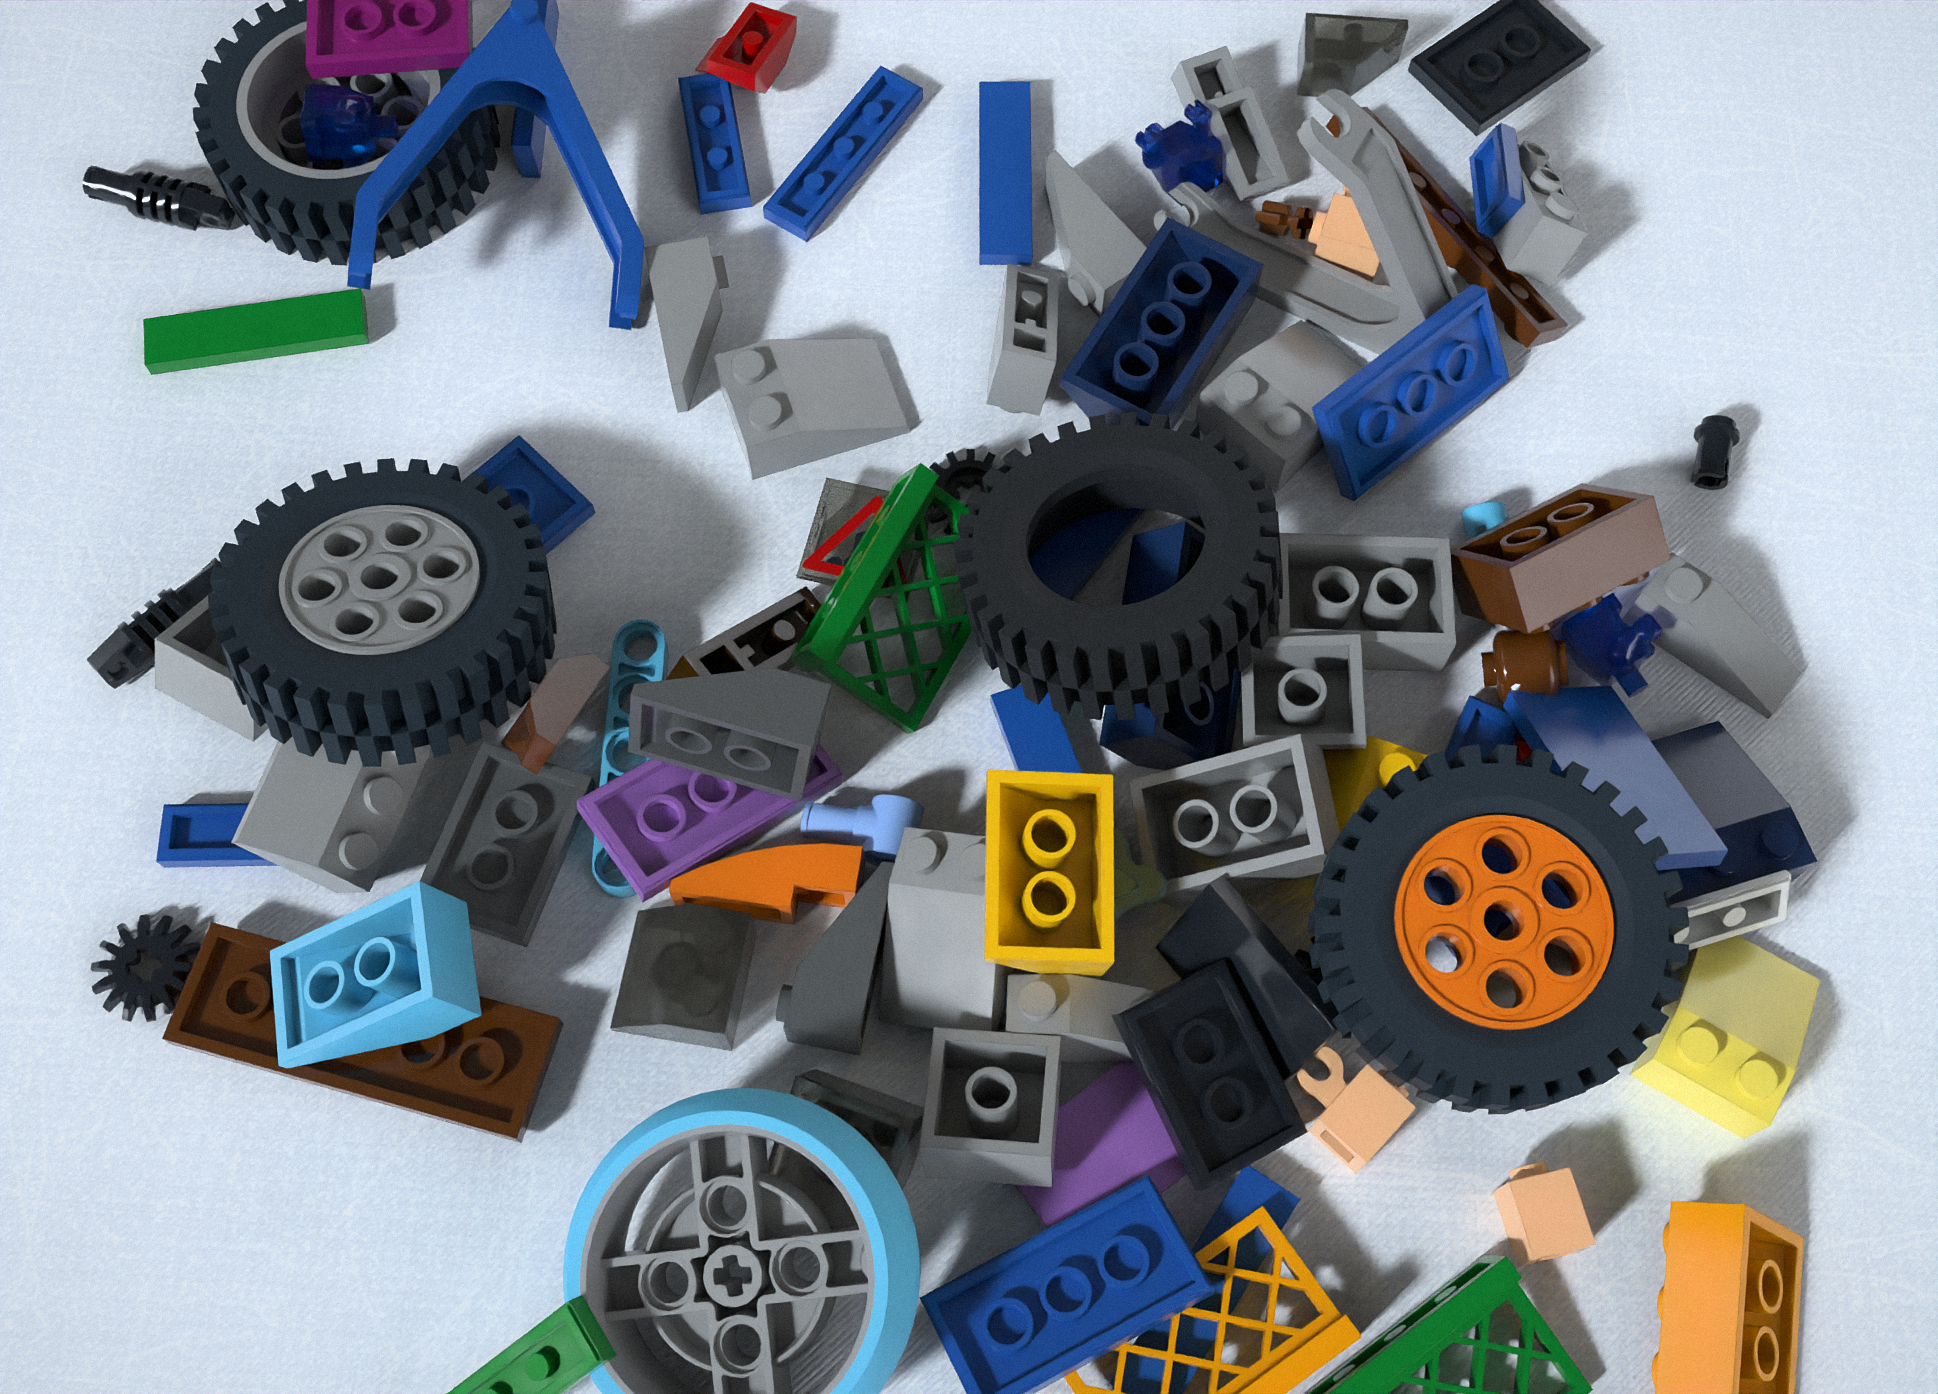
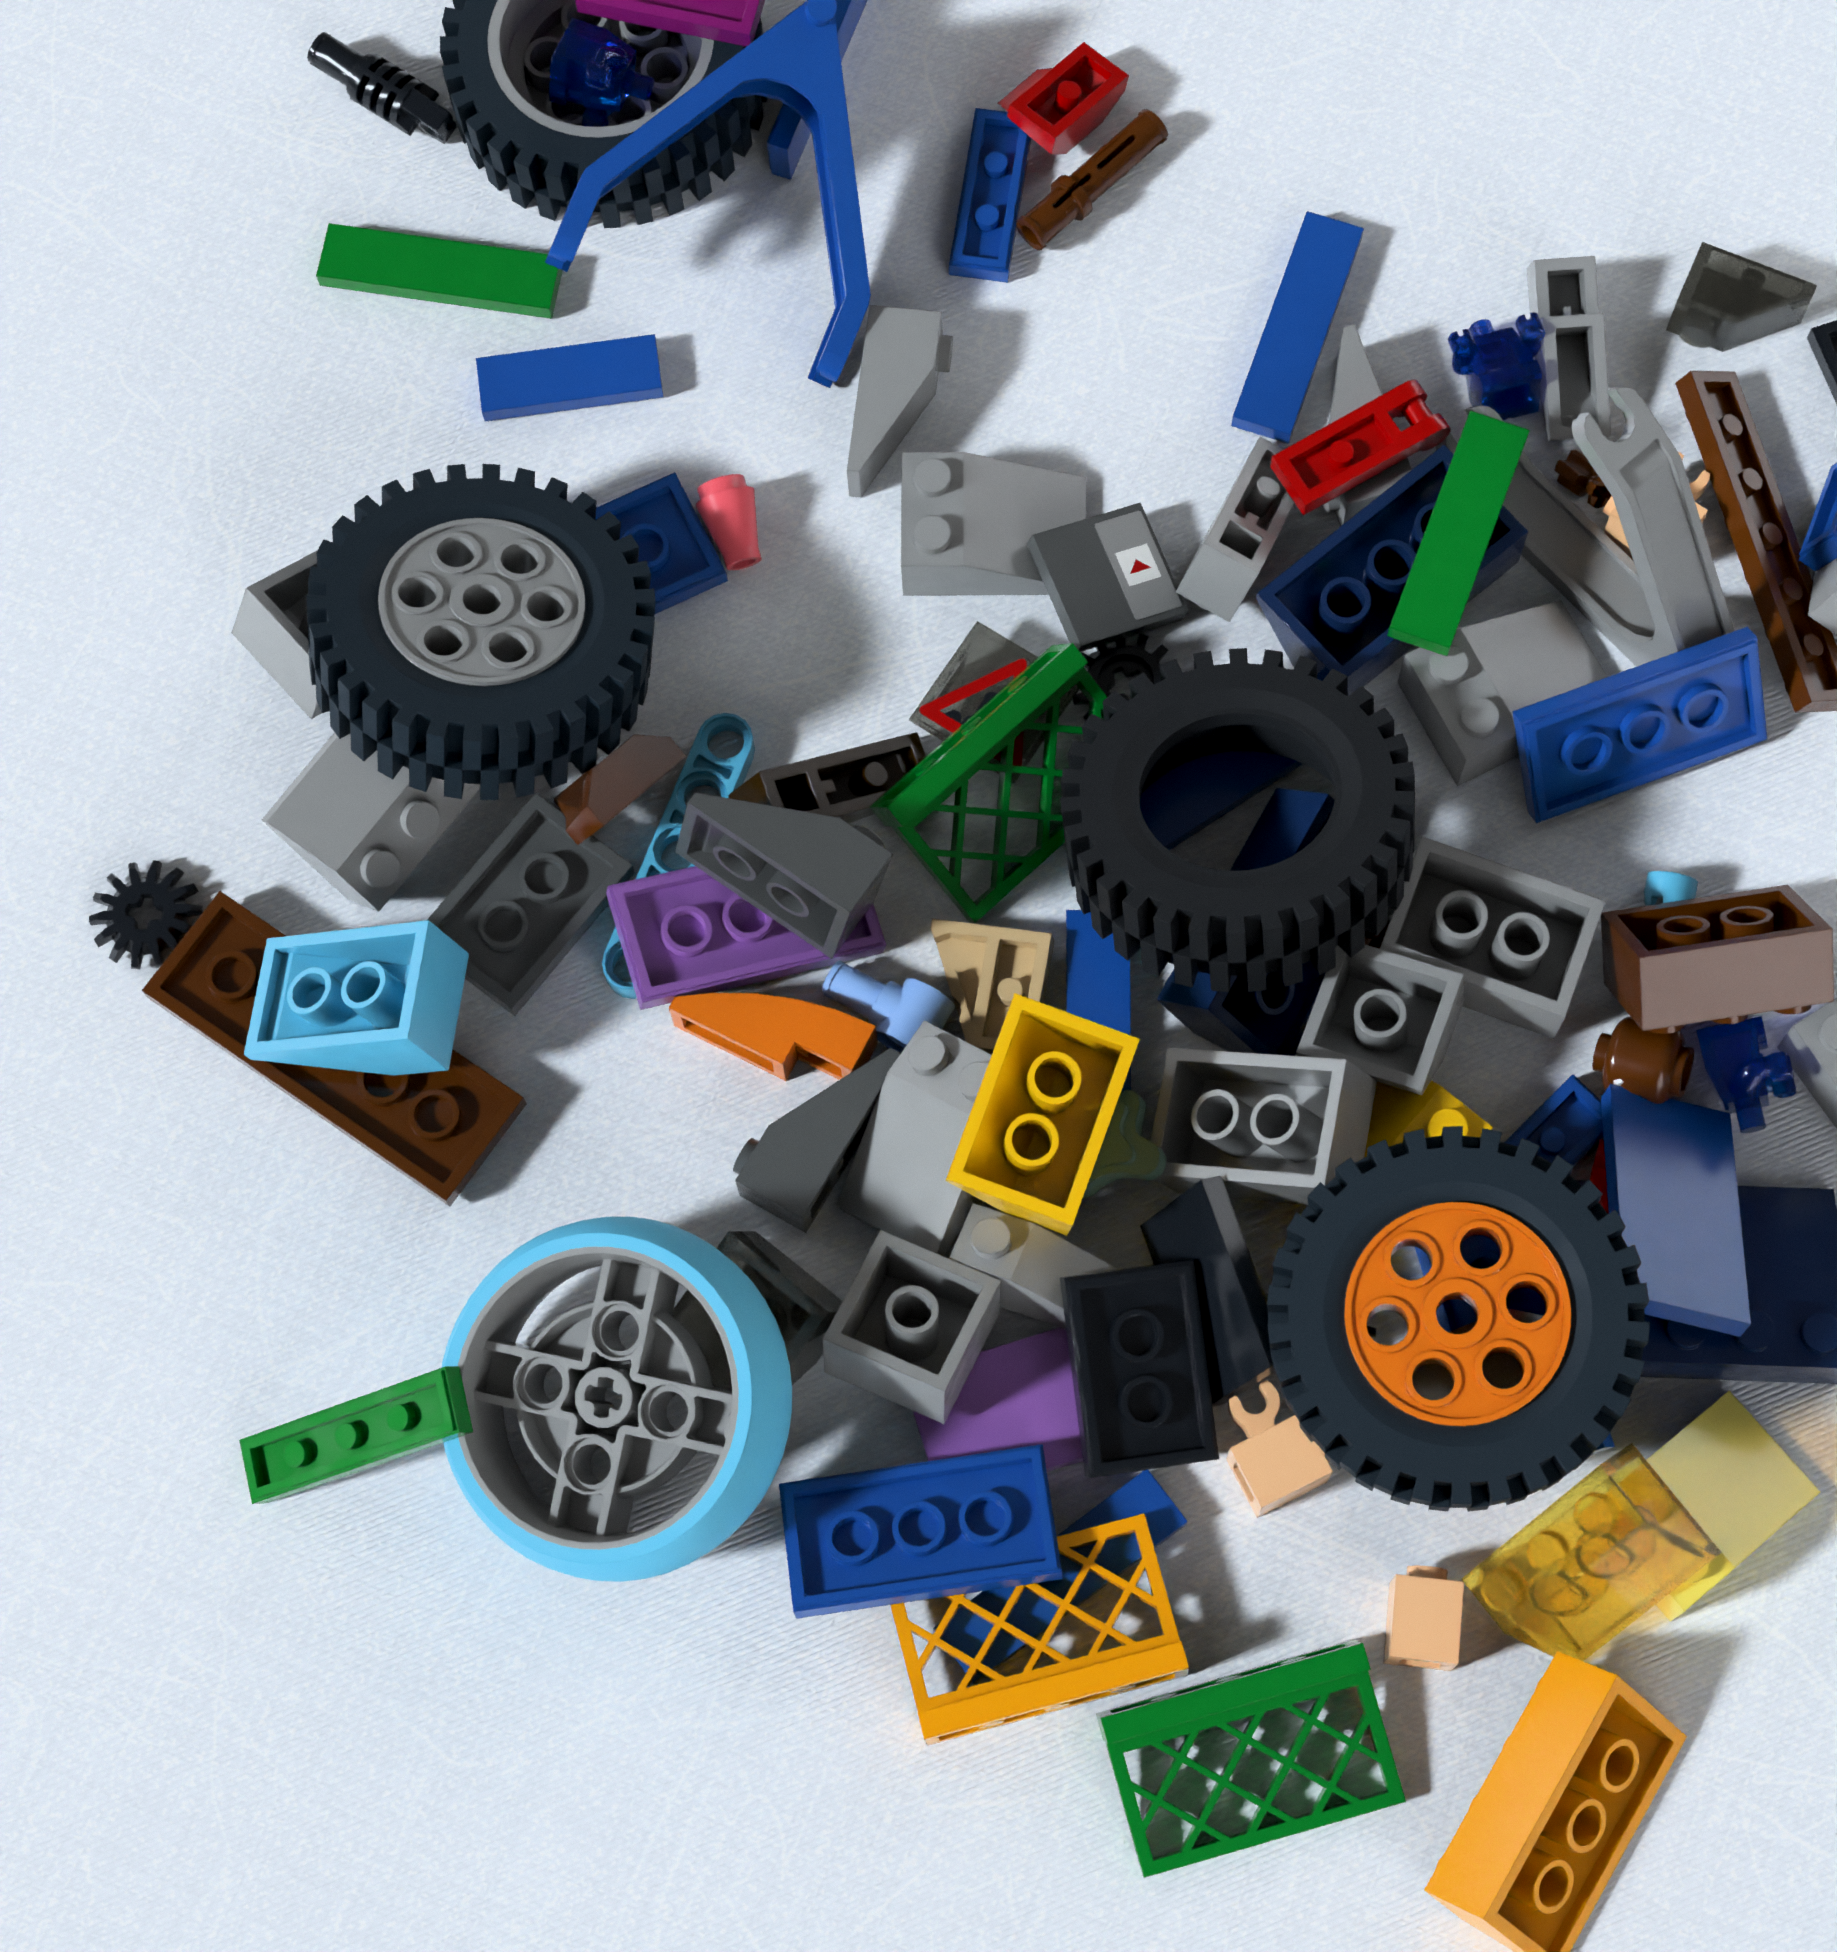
camera: 25 degrees right, 5 degrees up
(132, 646) = (223, 579): black hinge -> none
(203, 836) = (236, 799): blue tile -> none
(399, 385) = (569, 377): none -> blue tile
(581, 457) = (730, 516): none -> coral cone
(686, 975) = (661, 1096): clear smoke slope -> none
(784, 121) = (1073, 195): none -> reddish brown pin
(843, 153) = (1128, 250): blue tile -> none
(924, 408) = (1107, 577): none -> dark grey tile
(946, 772) = (987, 968): none -> tan wing
(1097, 239) = (1358, 446): none -> red plate
(1209, 281) = (1458, 533): none -> green tile
(1675, 1108) = (1592, 1560): none -> clear yellow slope
(1735, 910) = (1723, 1388): white slope -> none

